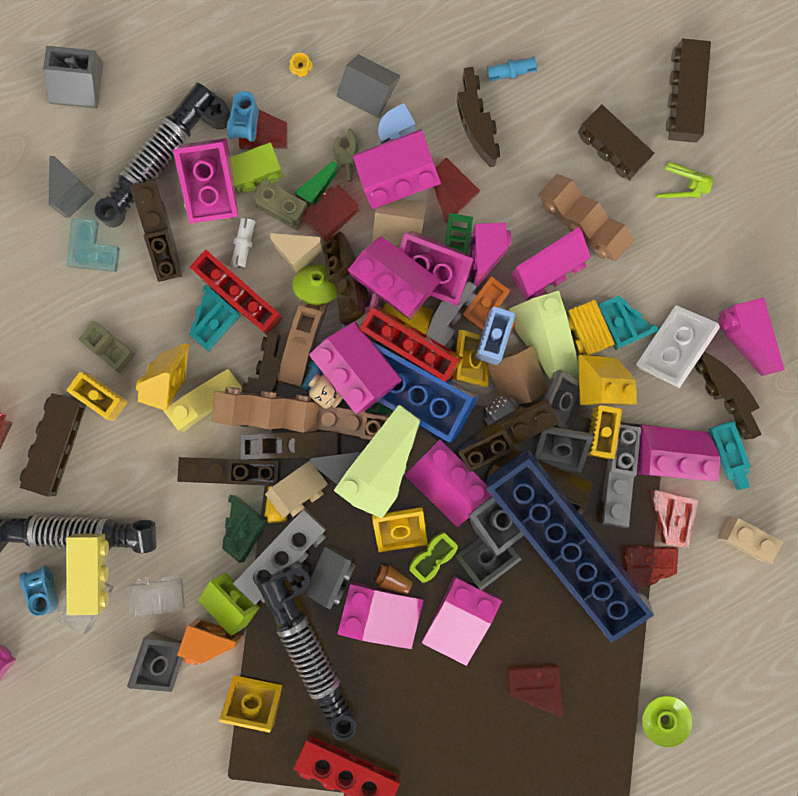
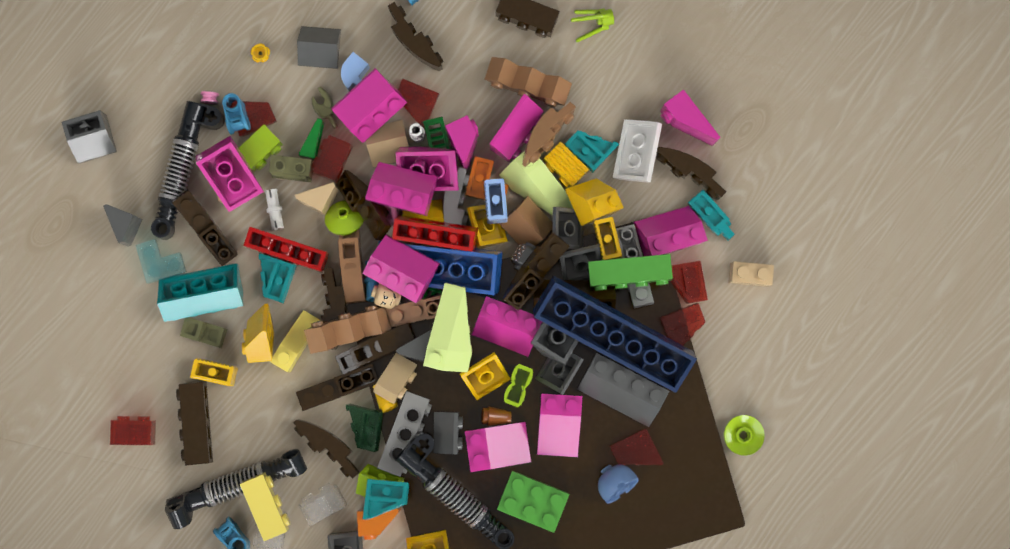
camera: 20 degrees left, 0 degrees up
(120, 301) = (200, 292): none -> teal slope
(187, 522) = (323, 439): none -> dark brown slope
(223, 90) = (209, 97): none -> bright pink bush
(225, 623) = (383, 497): none -> teal wing
(395, 697) = (533, 501): none -> bright green brick
(440, 221) = (417, 128): none -> white pin
(499, 714) = (616, 481): none -> medium blue cylinder
(550, 611) = (622, 390): none -> dark grey slope
(584, 281) = (545, 132): none -> medium nougat slope
(618, 481) = (630, 271): none -> bright green brick

